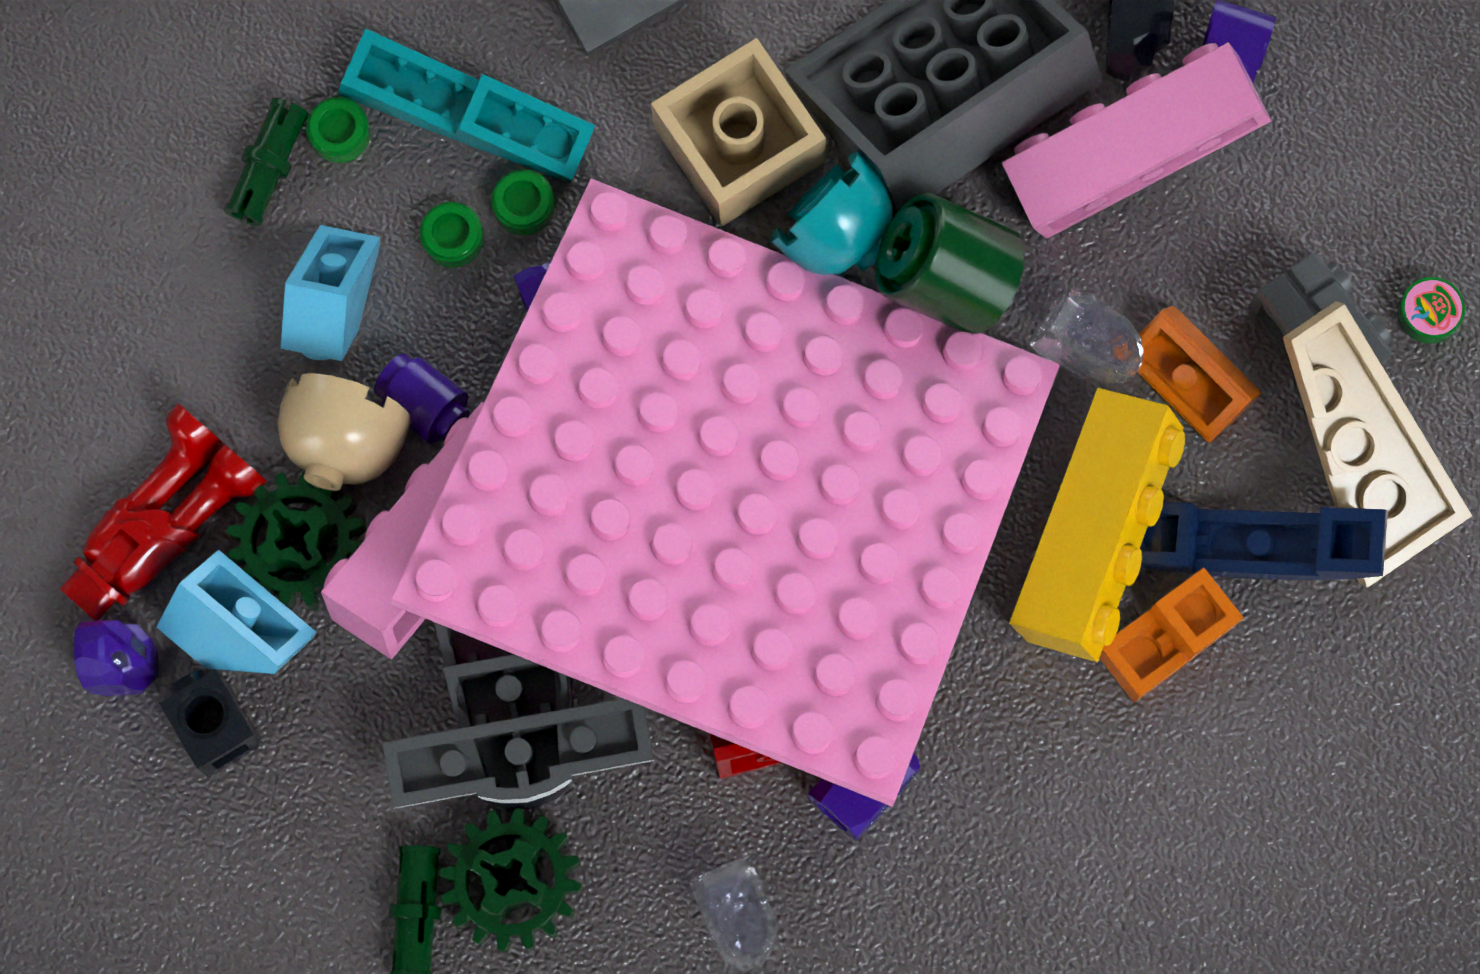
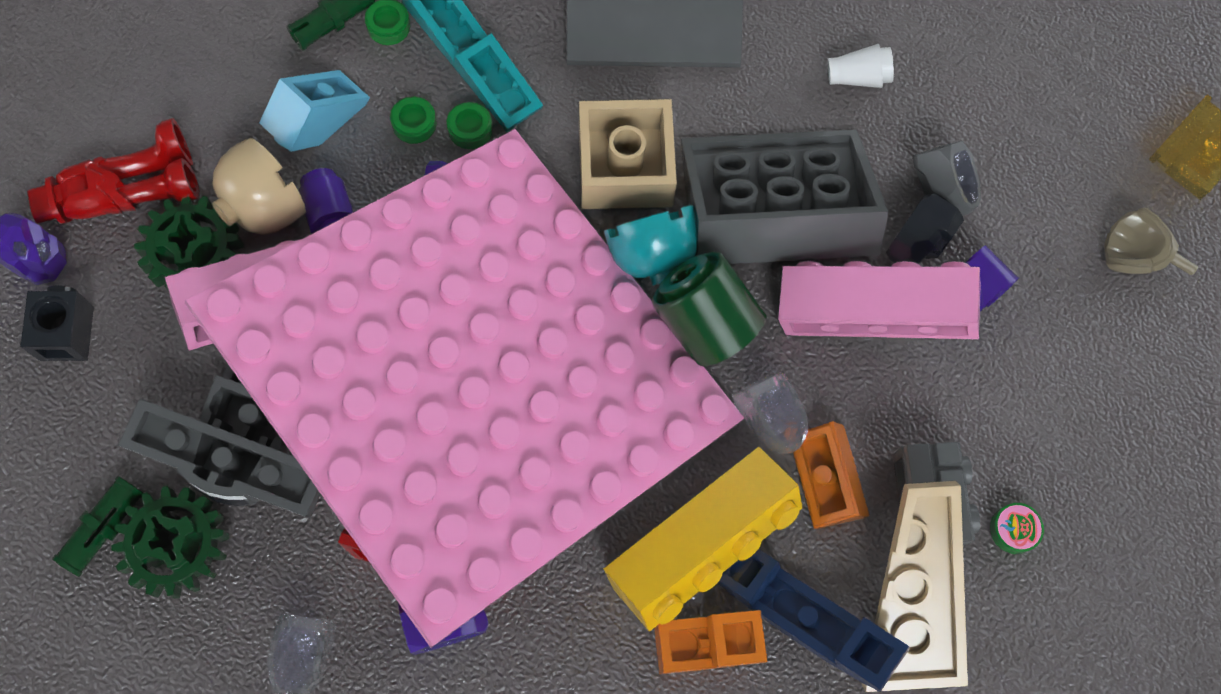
camera: 20 degrees right, 5 degrees down
(232, 620) = (110, 266): medium azure slope -> none

